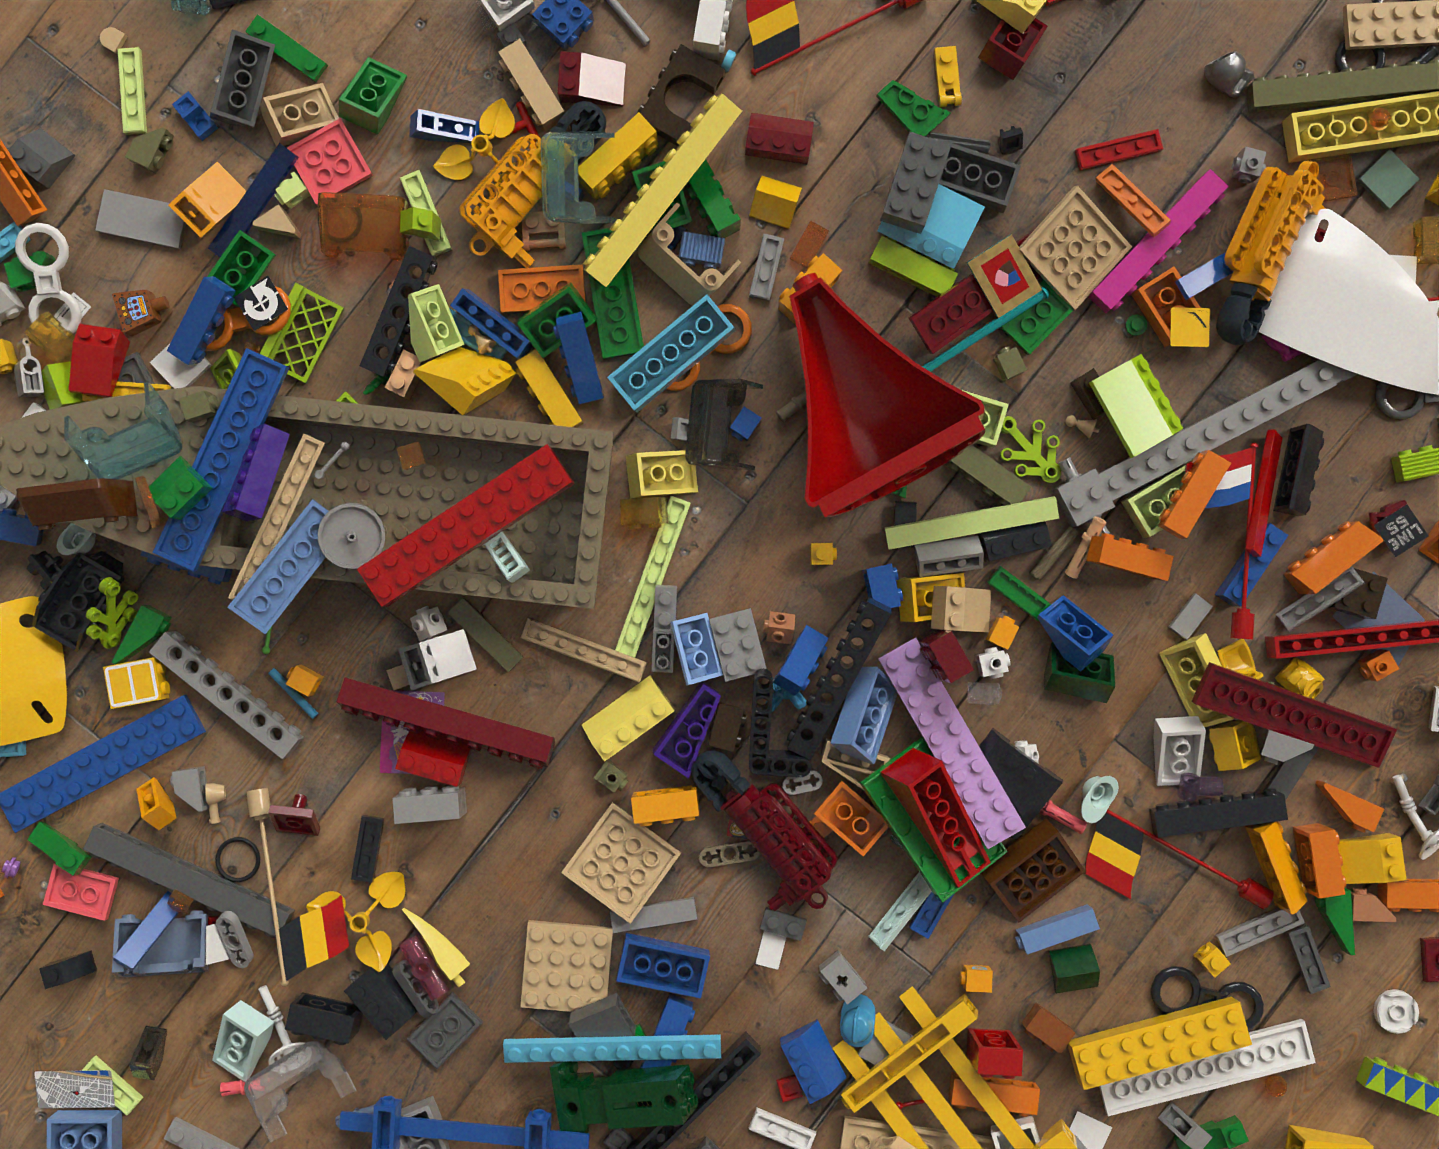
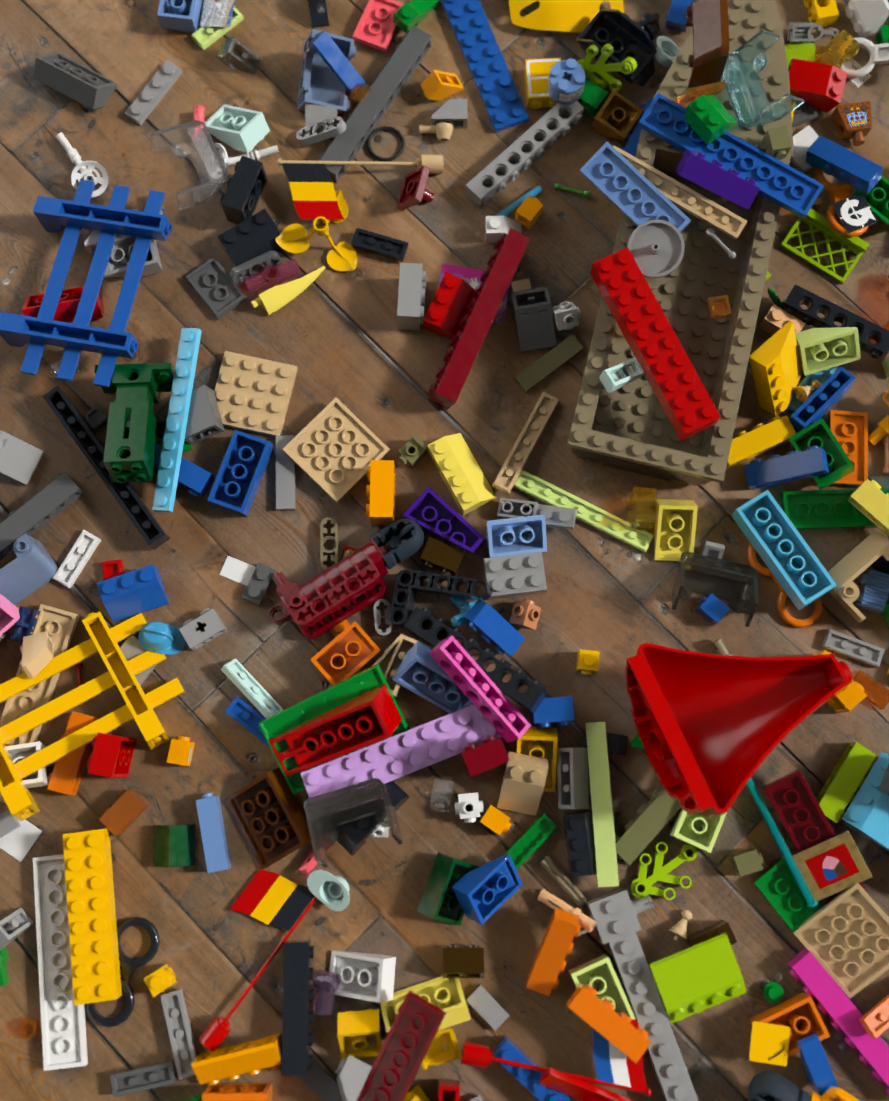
camera: 95 degrees right, 10 degrees down
(130, 667) = (566, 81): none -> medium blue brick
(171, 591) = (616, 117): none -> pearl gold slope
(328, 710) = (497, 225): none -> white slope
(873, 670) = (480, 689): none -> dark pink brick
(1025, 814) = (345, 806): none -> clear smoke windscreen
(1150, 648) = (463, 962): none -> dark brown brick

